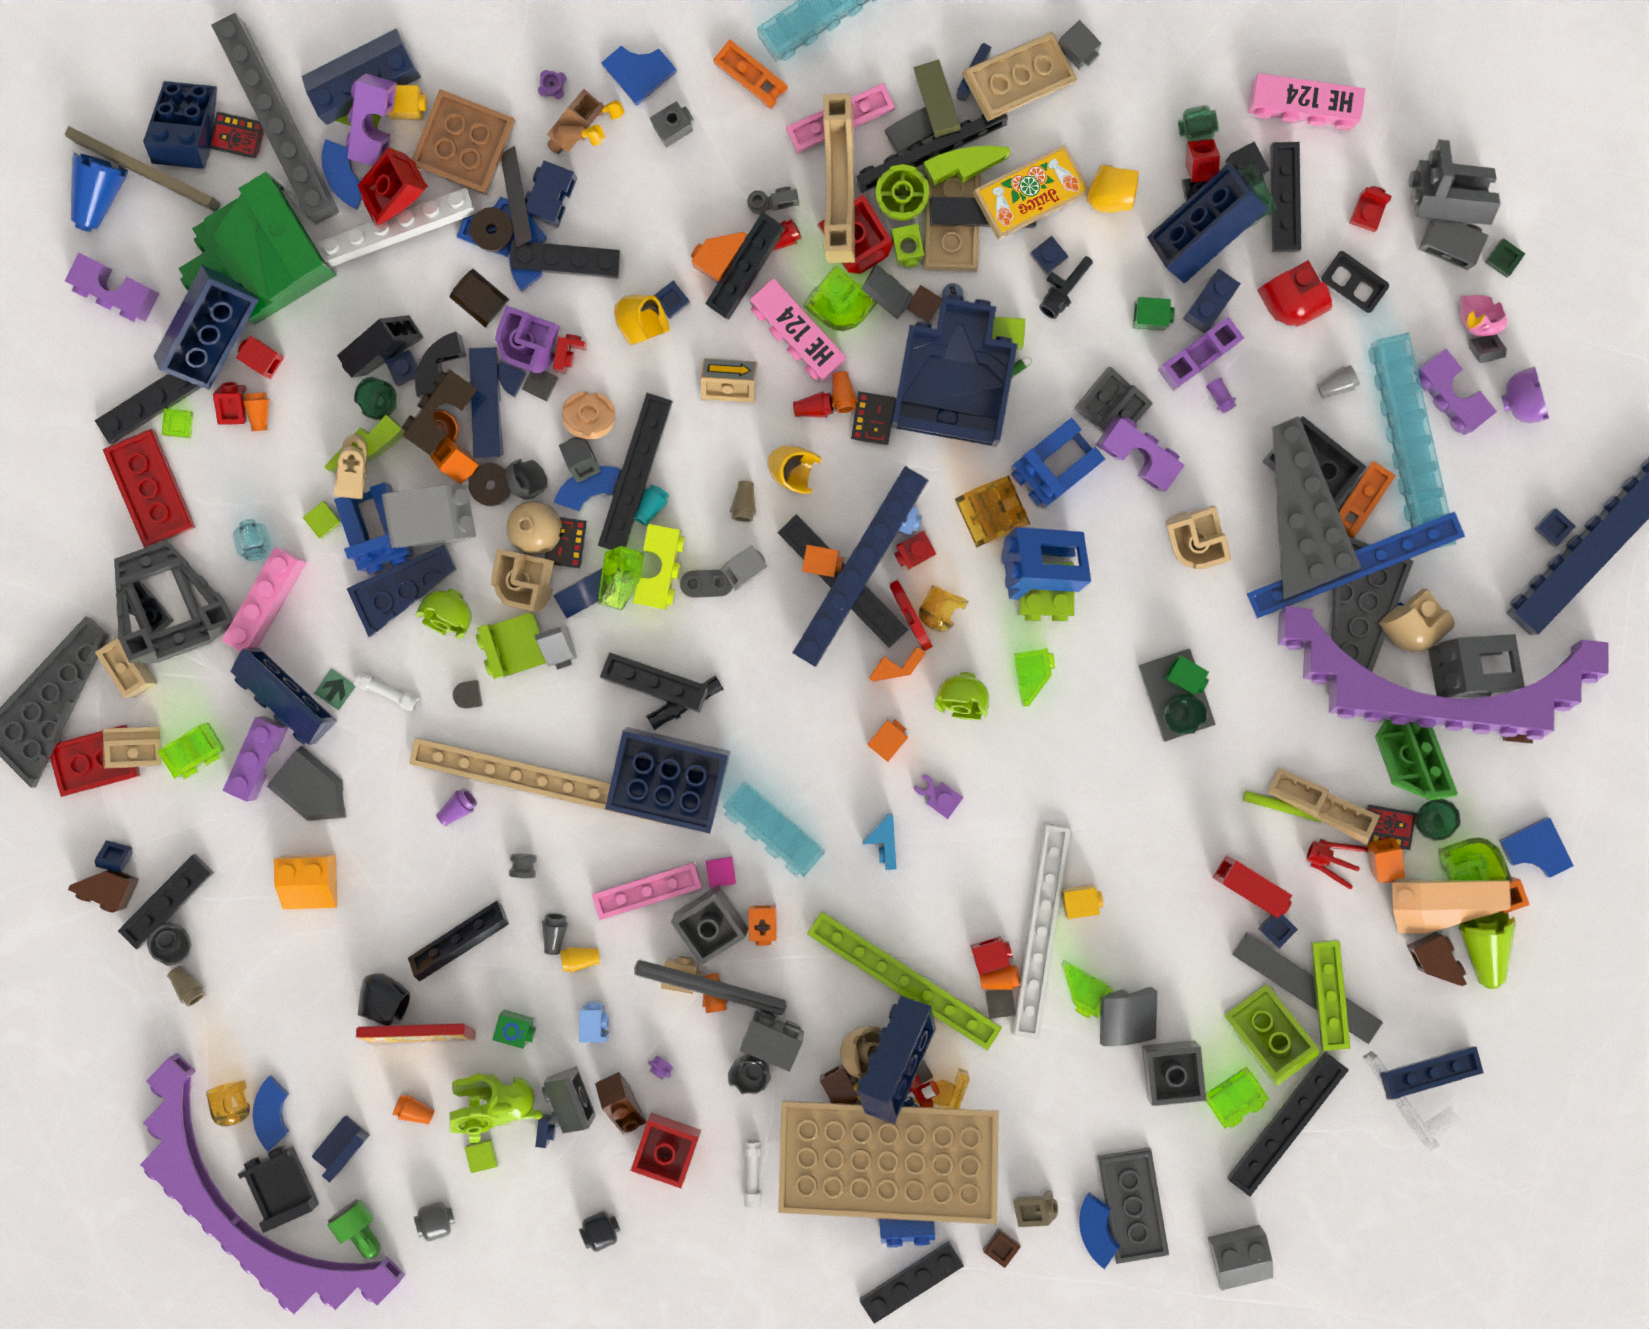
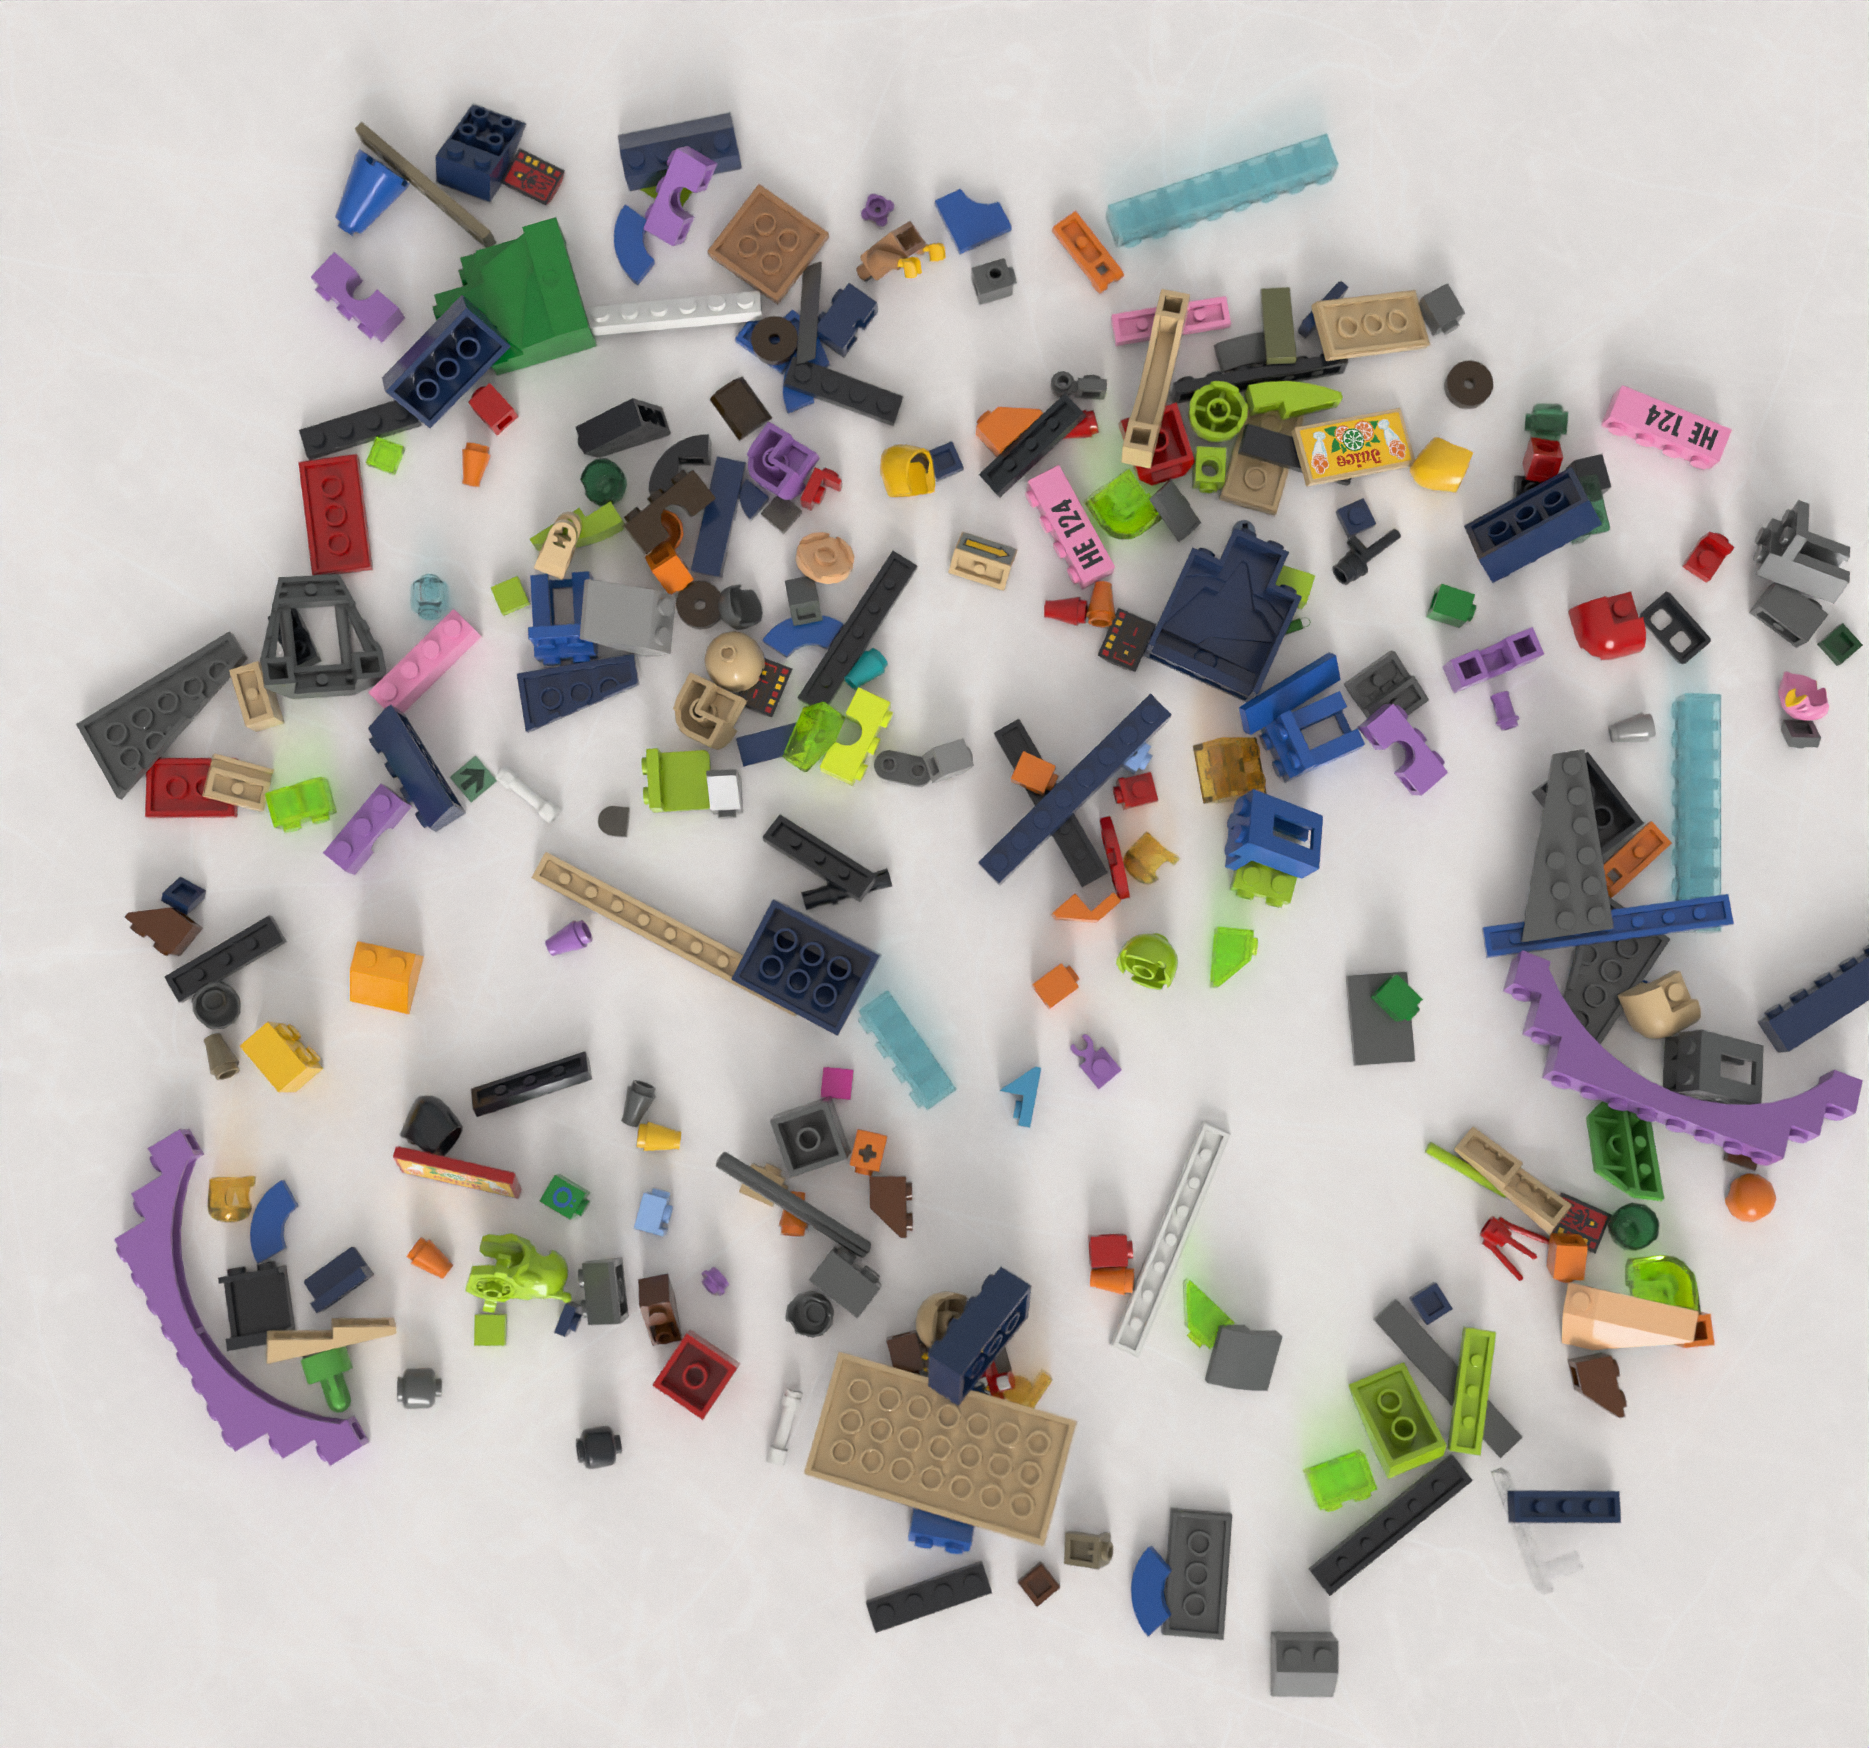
camera: 10 degrees right, 5 degrees down
(229, 403) = (447, 449): red bracket -> none
(237, 974) = (282, 1056): none -> yellow brick
(275, 118) = (579, 170): dark grey brick -> none
(309, 787) = (416, 876): dark grey tile -> none
(358, 1191) = (343, 1332): none -> tan slope
(390, 186) = (680, 267): red slope -> none
(402, 367) = (640, 459): dark blue plate -> none
(409, 103) = (722, 190): yellow brick -> none
(445, 612) = (615, 726): lime cylinder -> none
(522, 865) = (623, 1020): dark grey wheel -> none
(647, 891) = (751, 1082): bright pink plate -> none
(744, 502) = (965, 694): dark tan cone -> none
(791, 467) = (1028, 667): yellow piece -> none
(792, 962) = (889, 1202): none -> reddish brown slope
(904, 980) = (1007, 1253): lime plate -> none
(924, 303) = (1211, 533): reddish brown tile -> none
(1000, 1003) = (1105, 1307): clear smoke tile -> none
(1028, 430) = (1289, 693): none -> blue tile
(1081, 901) = (1223, 1217): yellow brick -> none
(1120, 94) = (1461, 395): none -> dark brown piece
(1174, 1073) = (1278, 1433): dark grey brick -> none
(1184, 714) = (1385, 1039): clear green hair -> none
(1198, 538) = (1444, 855): tan brick -> none
(1211, 301) = (1517, 608): dark blue brick -> none
(1253, 887) = (1415, 1247): red window -> none
(1286, 196) = (1623, 519): black plate -> none
(1437, 379) = (1758, 794): medium lavender arch -> none
(1489, 947) = (1658, 1382): lime cone -> none
(1525, 397) = (1830, 795): medium lavender cylinder -> none
(1533, 767) = (1750, 1197): none -> orange hair
(1539, 846) = (1736, 1285): blue tile -> none
(1555, 527) = (1831, 942): dark blue plate -> none

